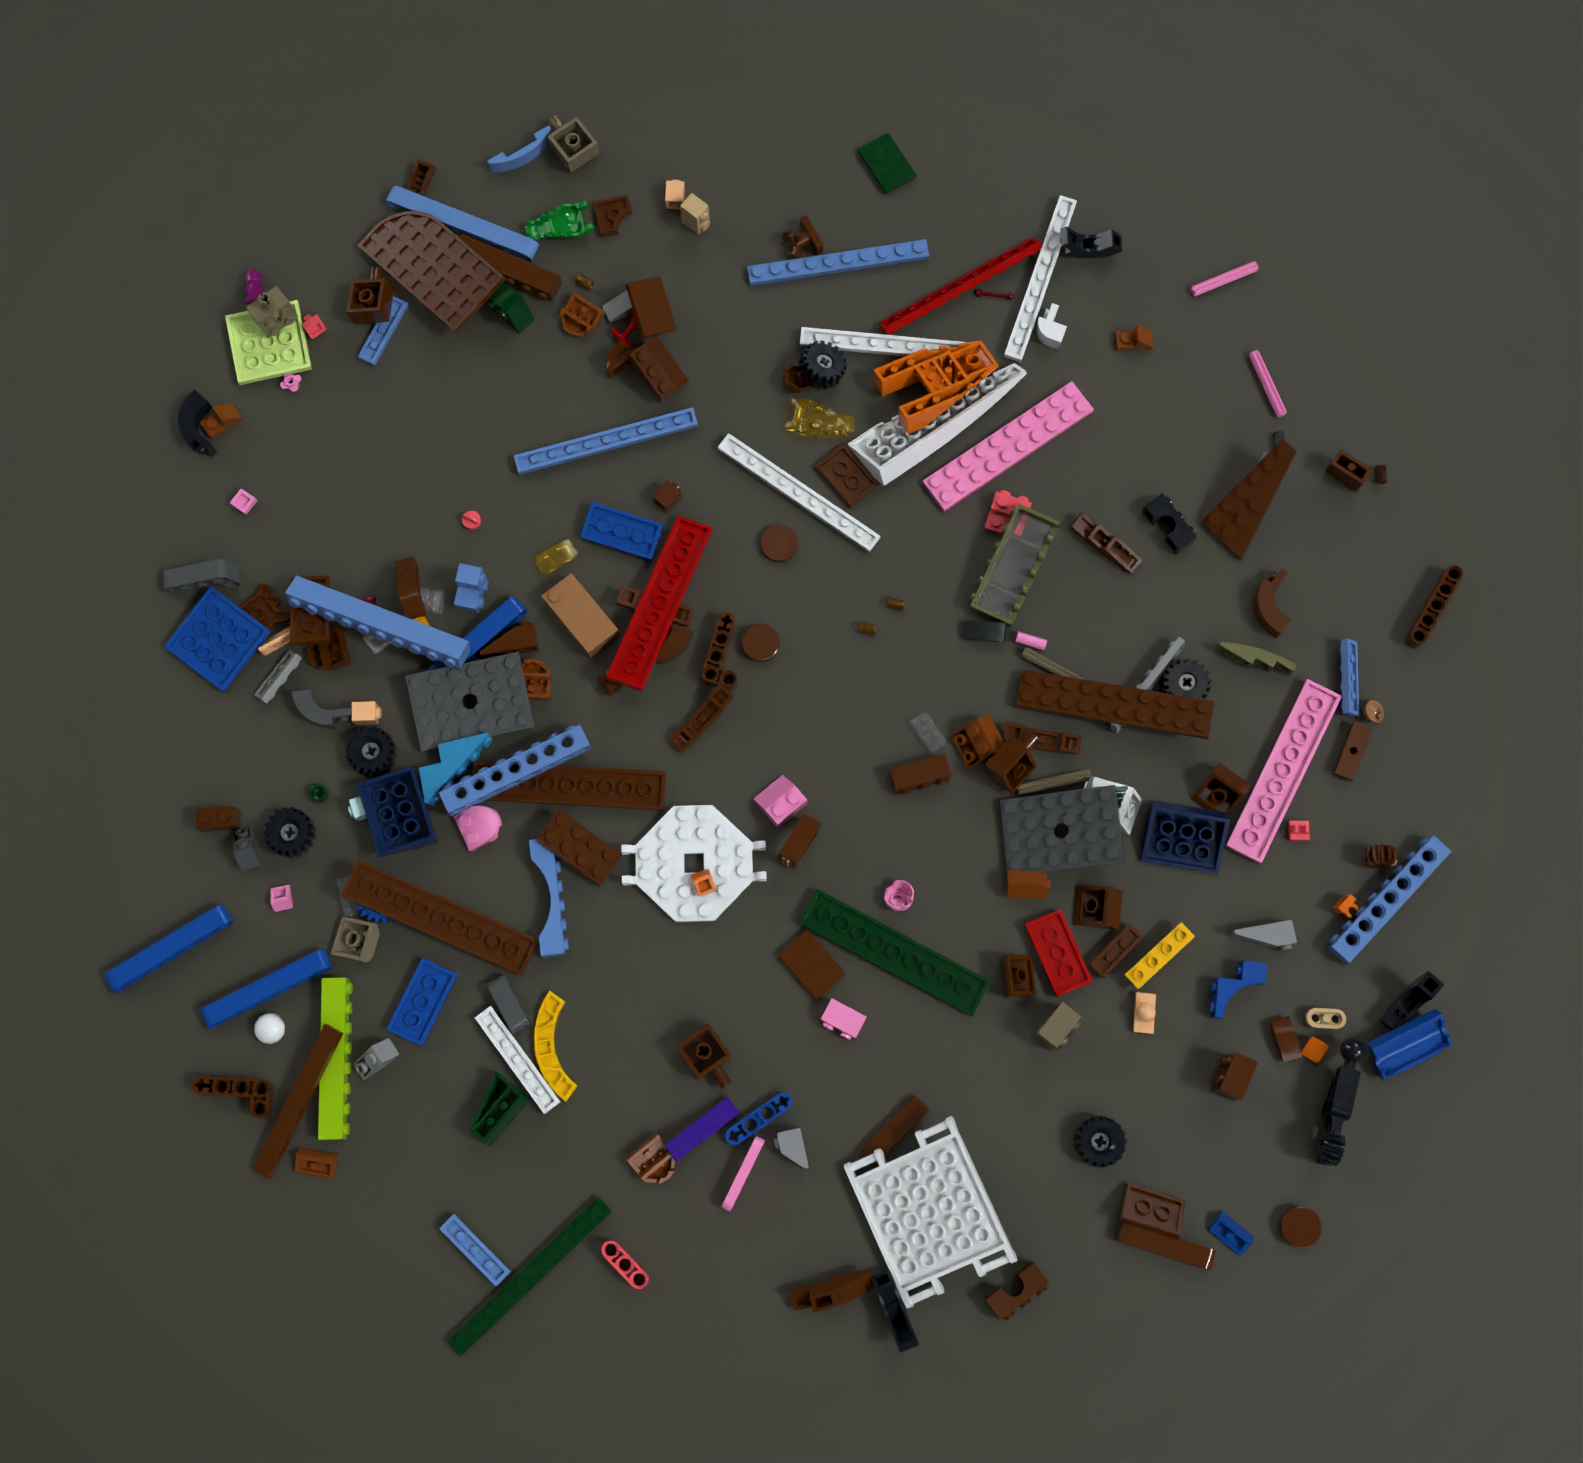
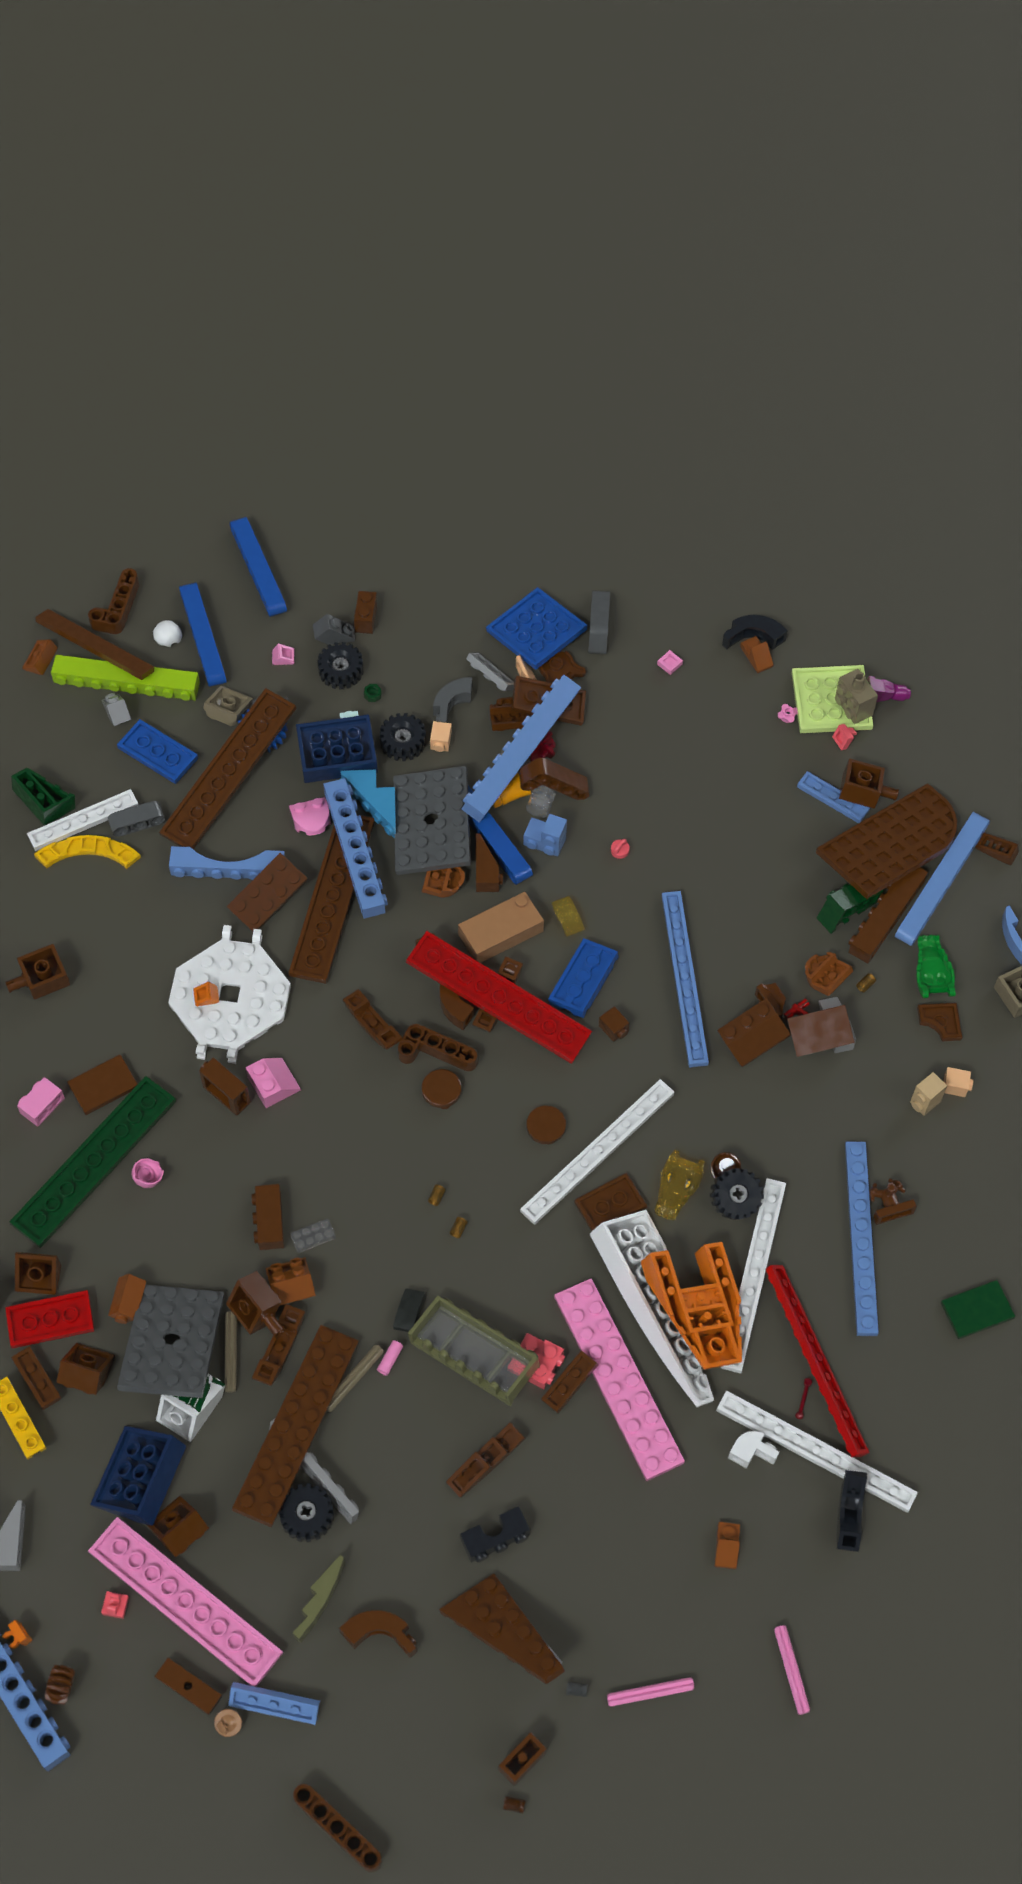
camera: 100 degrees right, 15 degrees down
(1023, 483) = (569, 1382): none -> reddish brown plate

